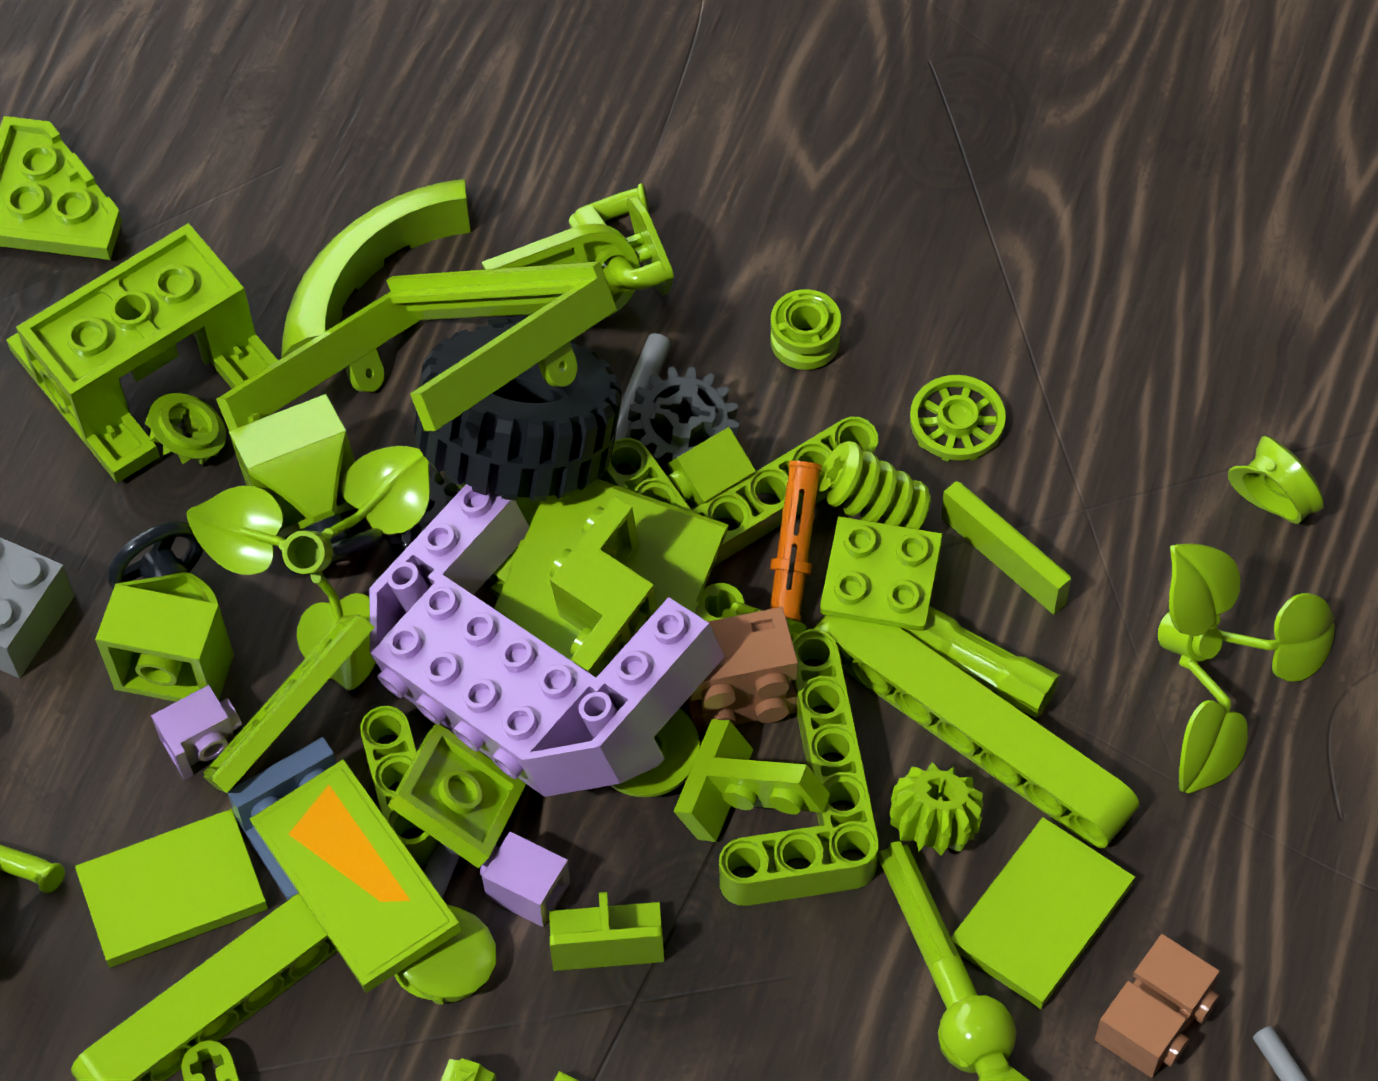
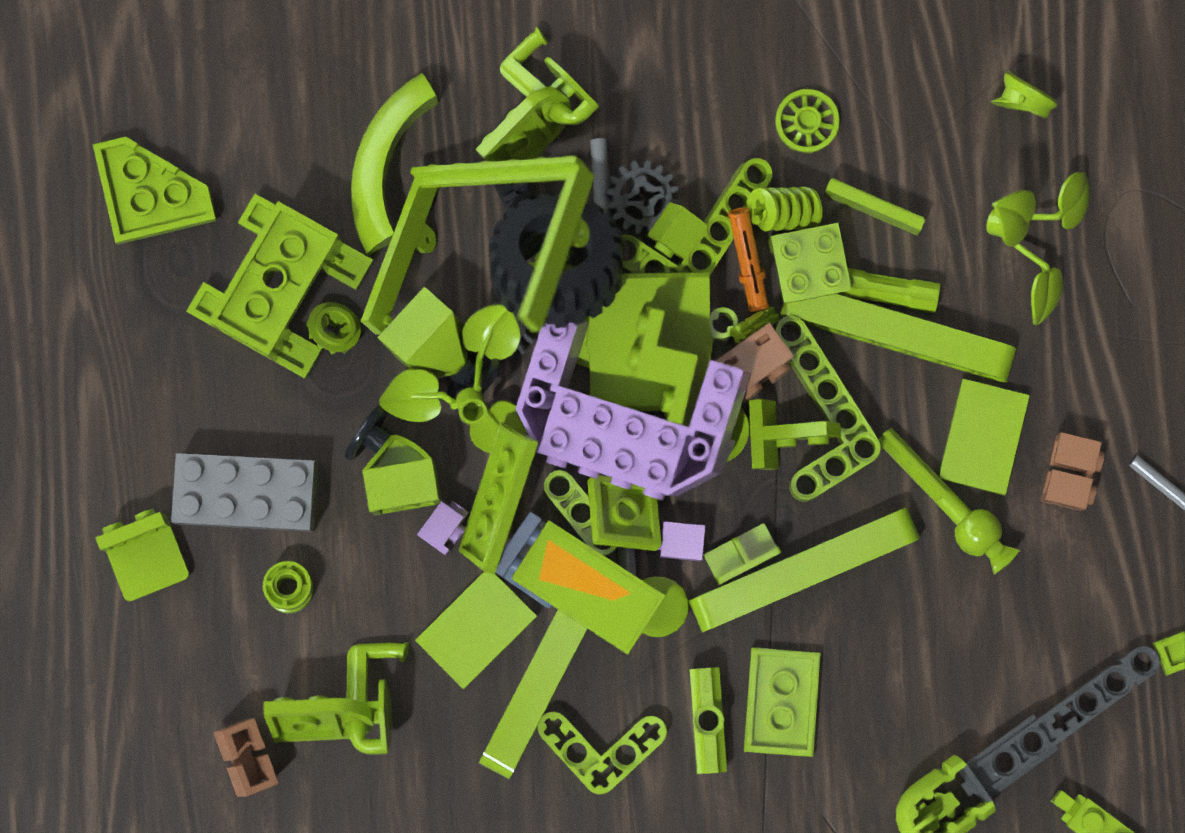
camera: 20 degrees left, 25 degrees up
(689, 989) = (804, 569): none -> lime beam
(805, 310) = (689, 82): lime wheel -> none
(936, 809) = (914, 397): lime gear -> none

